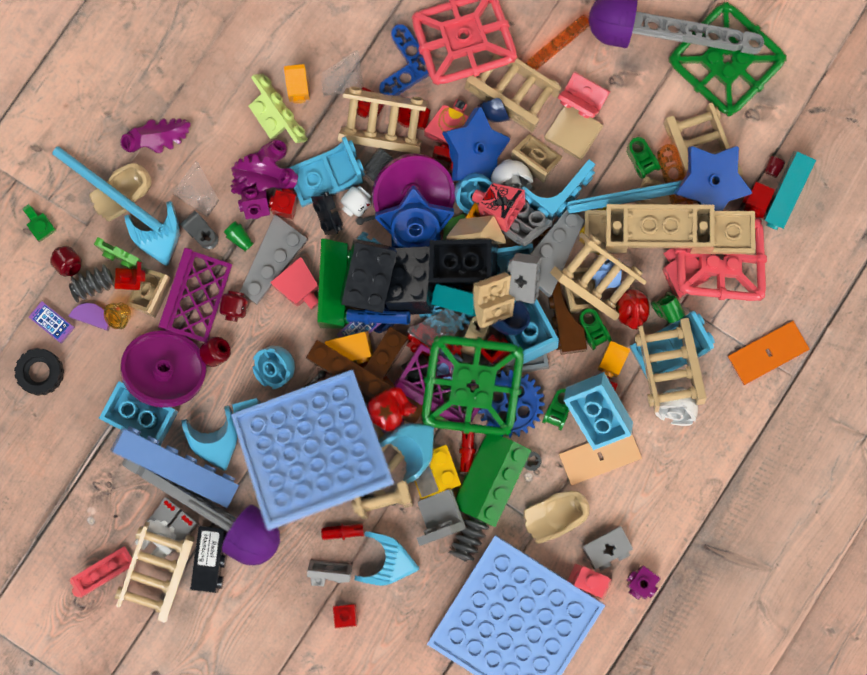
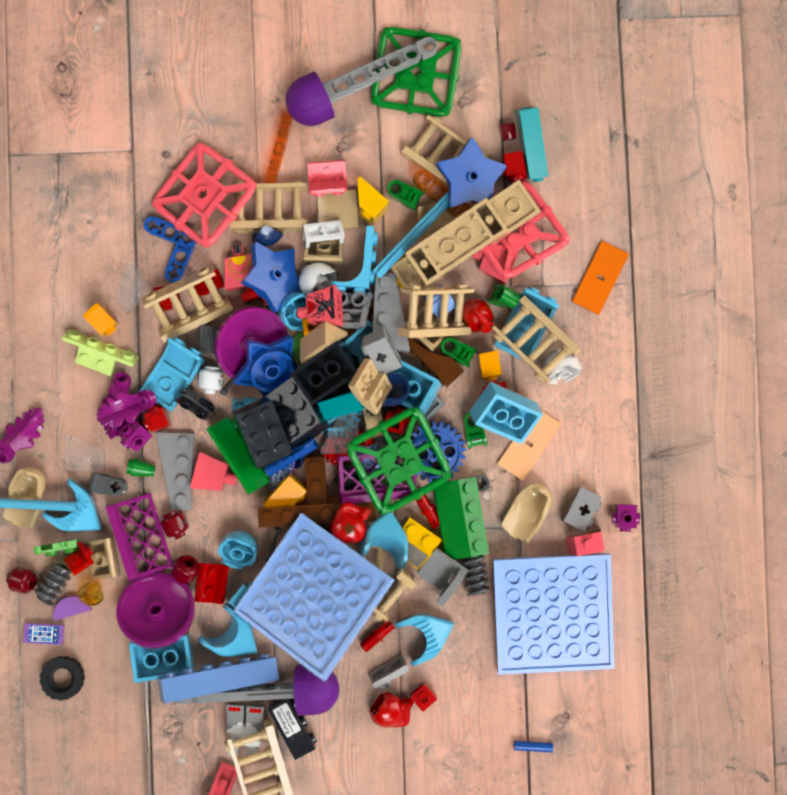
camera: 40 degrees left, 5 degrees up
(229, 380) = (211, 583): none -> red bracket
(307, 608) = (390, 711): none -> red piece
(546, 139) = (323, 232): none -> white hinge
(607, 144) = (371, 202): none -> yellow slope

